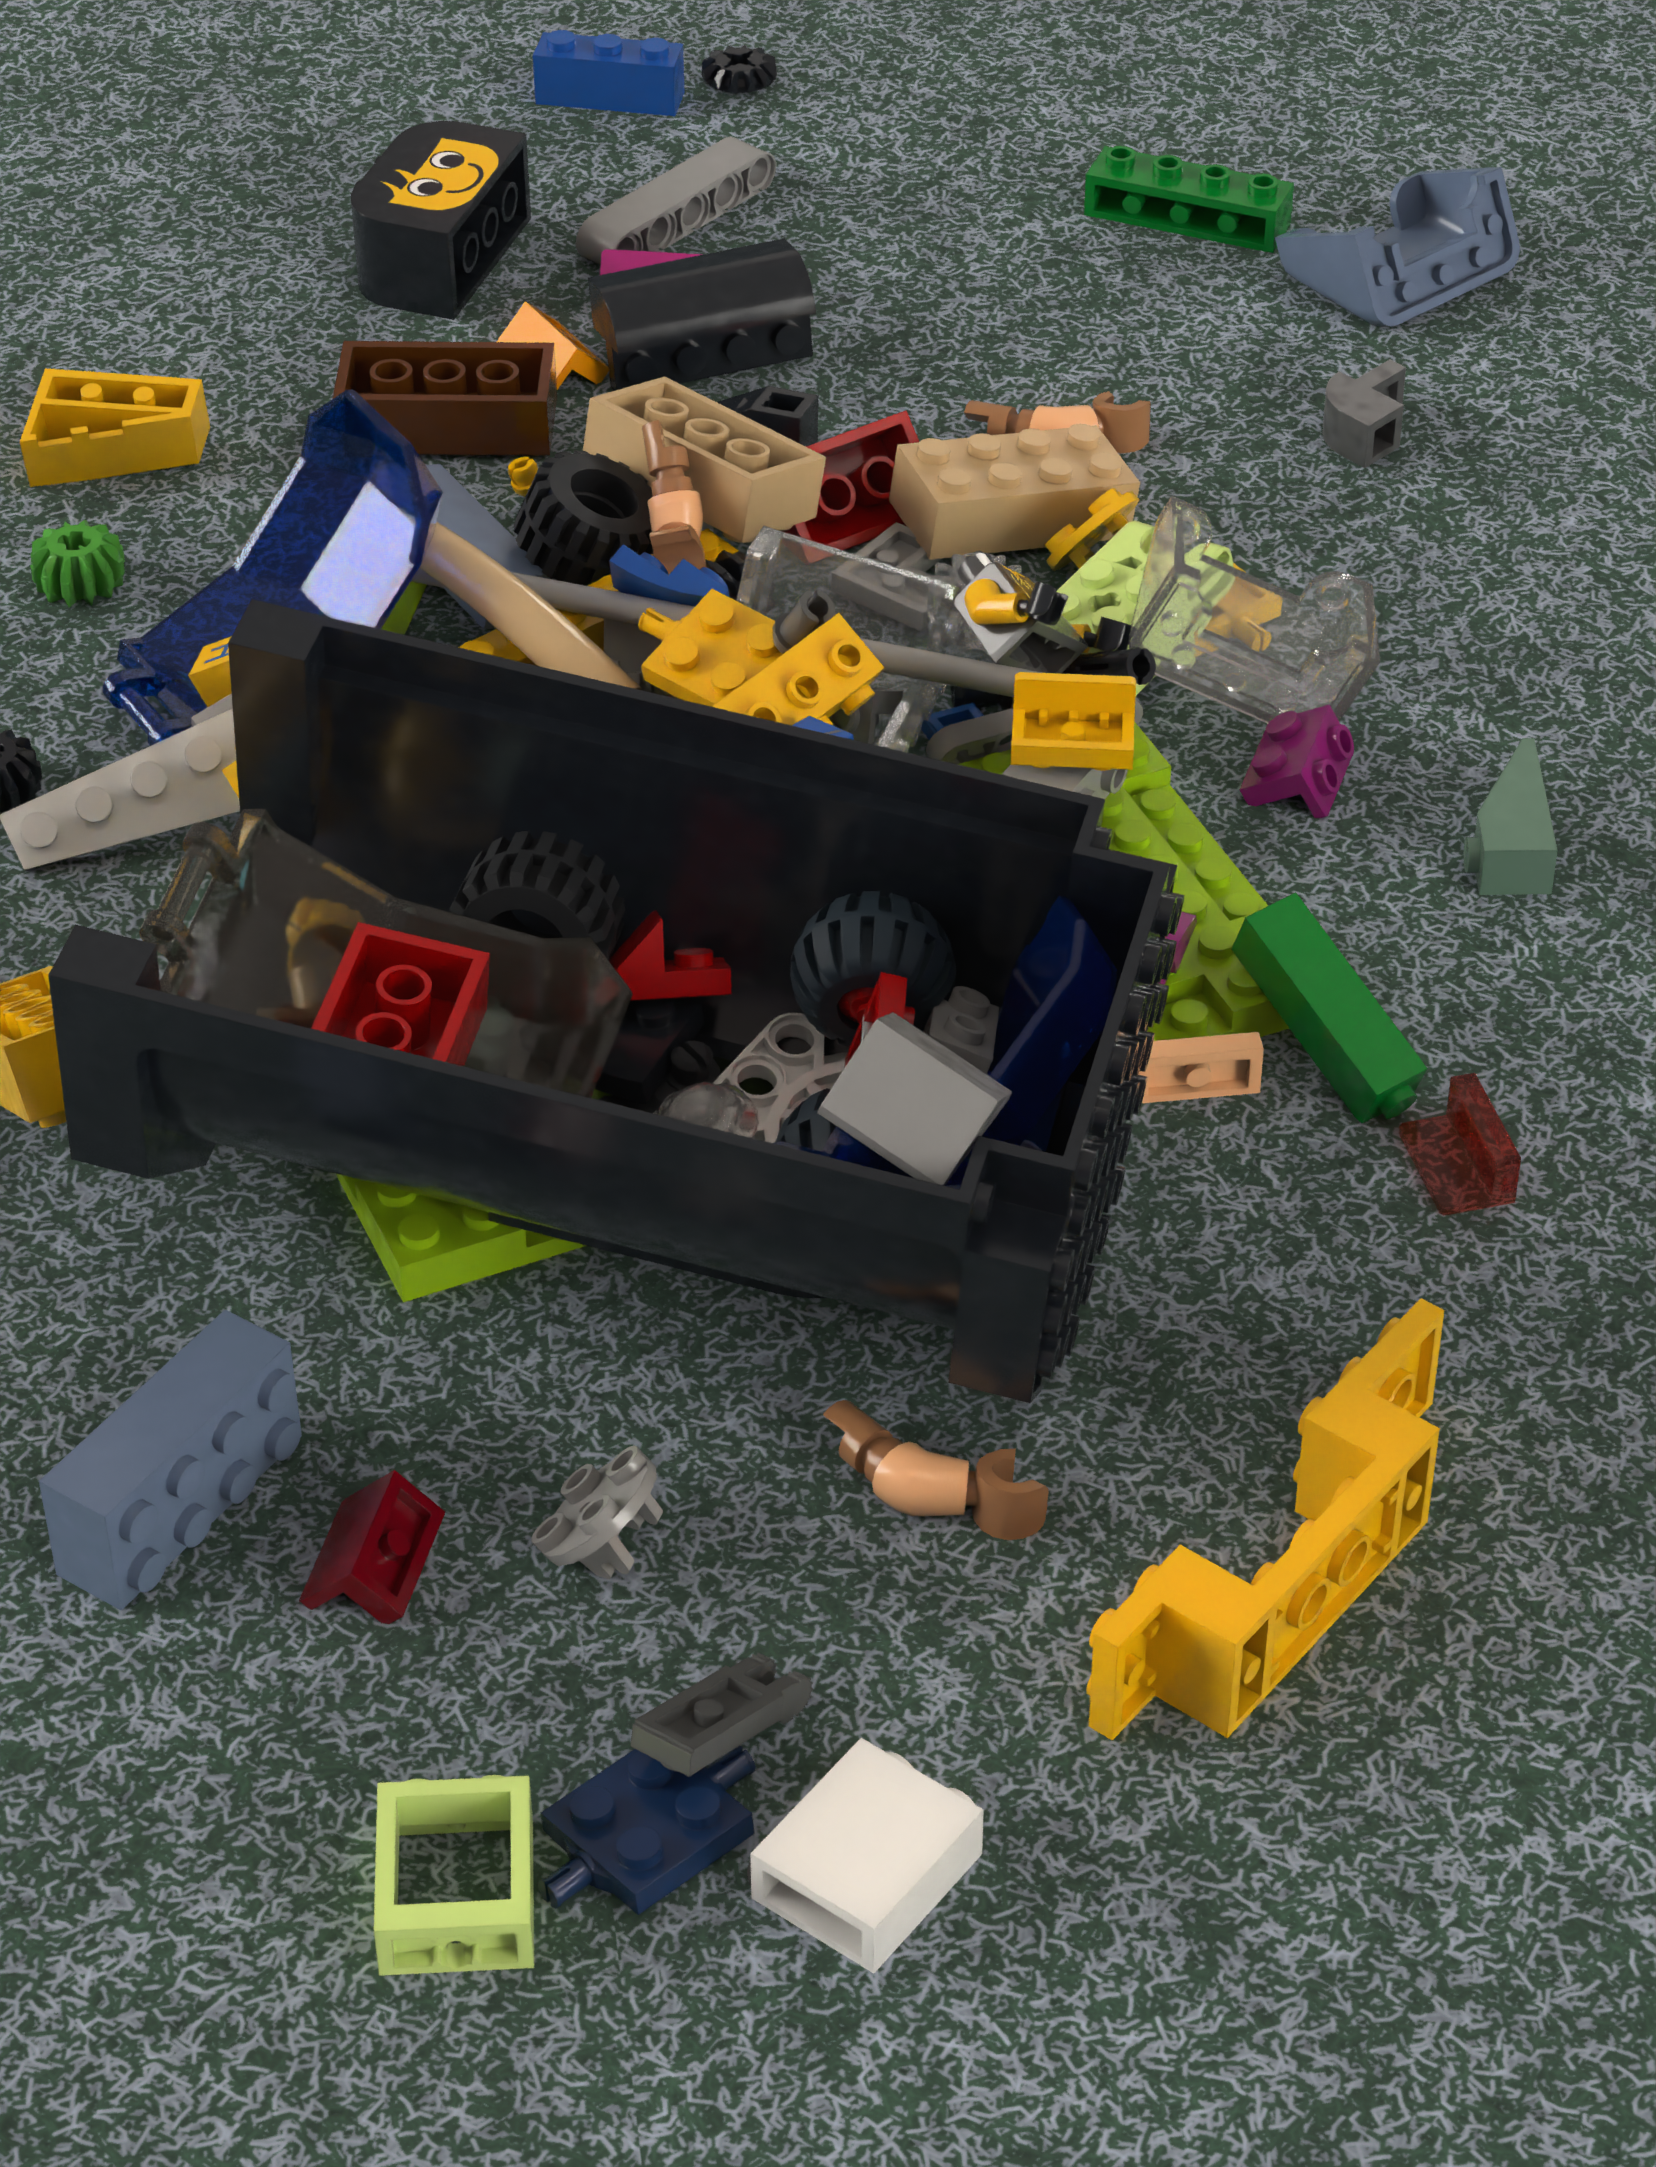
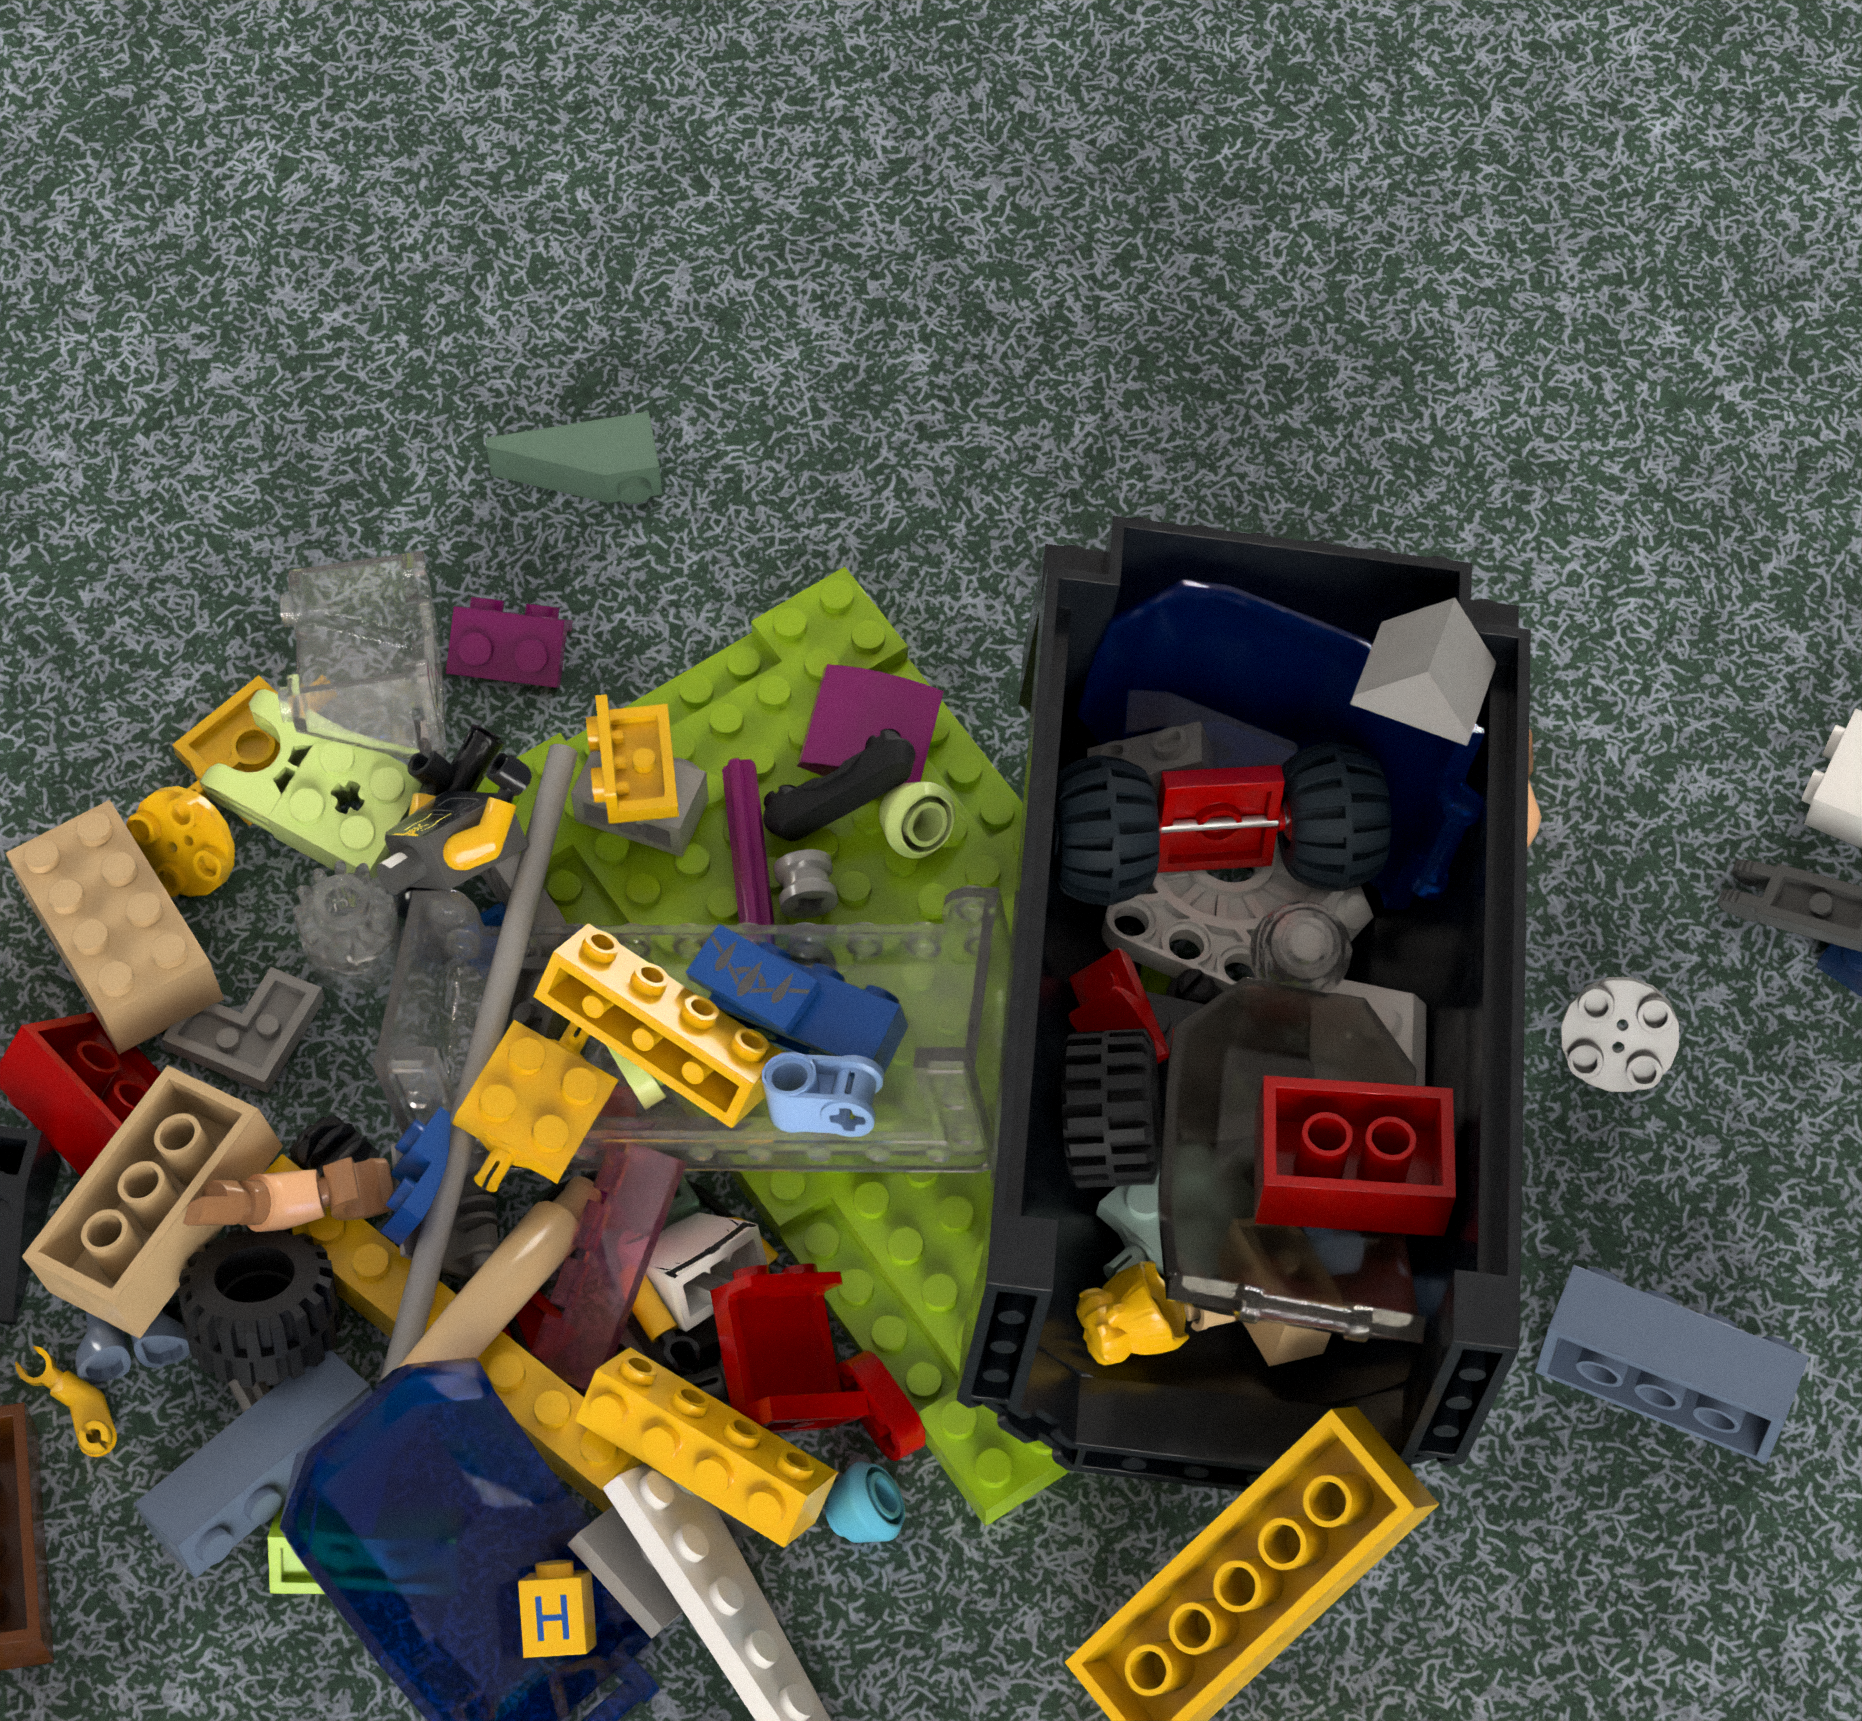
camera: 100 degrees left, 20 degrees up
(376, 1548) = (1689, 1214): dark red panel -> none
(803, 619) = (532, 1014): dark grey pin -> none
(1204, 1067) = (975, 694): light nougat plate -> none
(1329, 1009) = (908, 564): green brick -> none
(1366, 1491) = (1519, 496): yellow bracket -> none
(1466, 1153) = (1025, 475): clear red panel -> none

